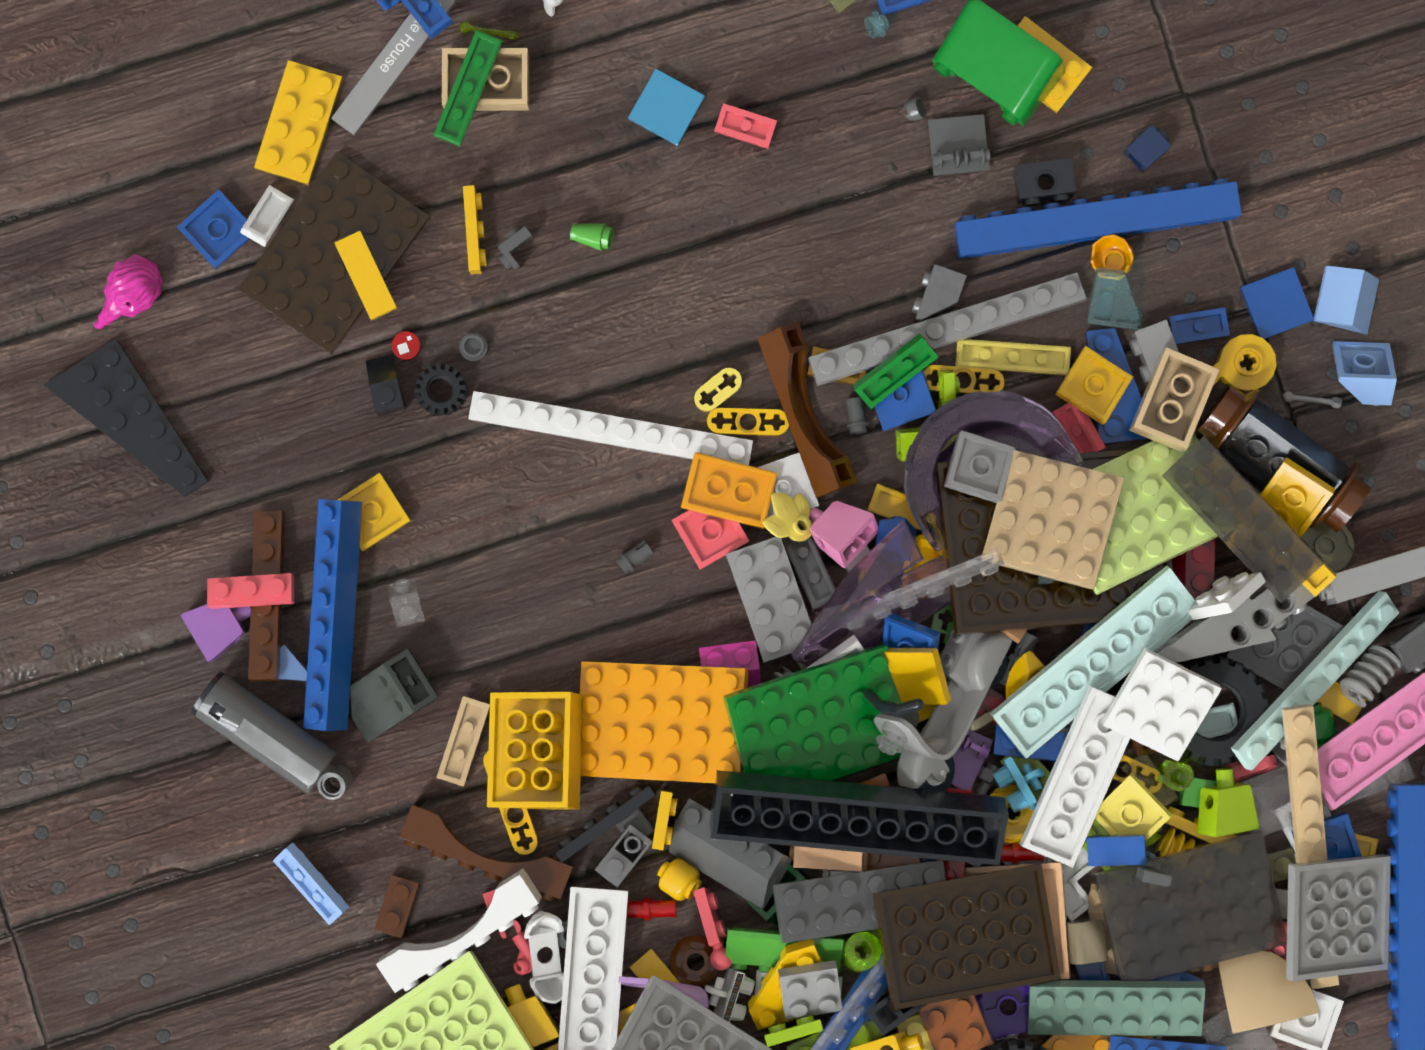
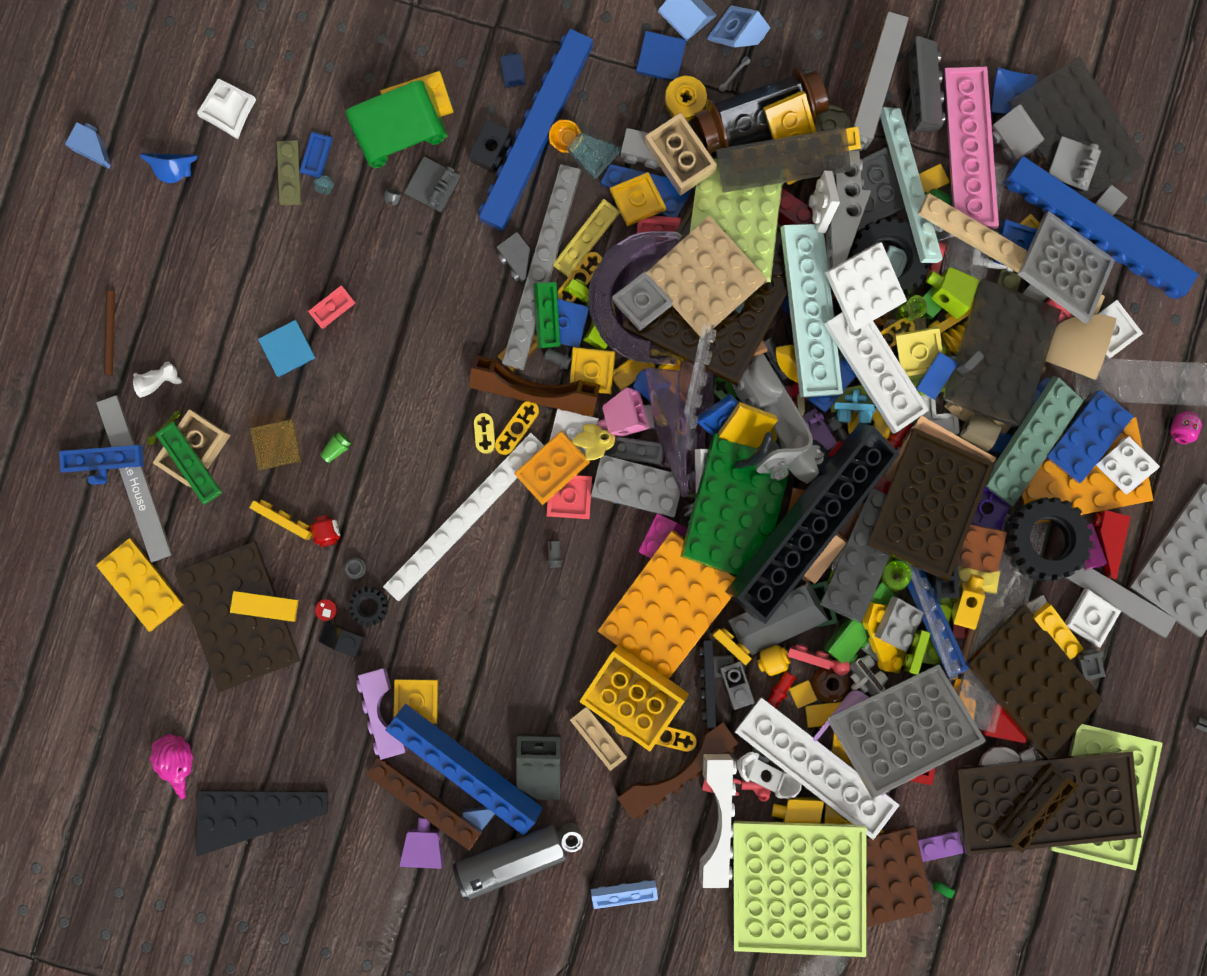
camera: 55 degrees left, 0 degrees up
(215, 229) = (172, 680): blue plate -> none
(250, 591) = (414, 811): coral plate -> none
(266, 215) = (184, 643): white tile -> none
(356, 455) = (374, 686): none -> lavender arch
(397, 906) = (674, 848): reddish brown plate -> none
(406, 602) = (487, 717): clear bracket -> none
(491, 286) = (325, 531): none -> red head
(514, 241) = (306, 497): dark grey bracket -> none
(551, 167) = (275, 445): none -> clear yellow plate
(662, 937) = (802, 694): none -> yellow tile
(872, 462) = (594, 367): none -> yellow plate
(1199, 326) = (643, 111): blue plate -> none
(1368, 674) = (927, 150): light grey piece -> none

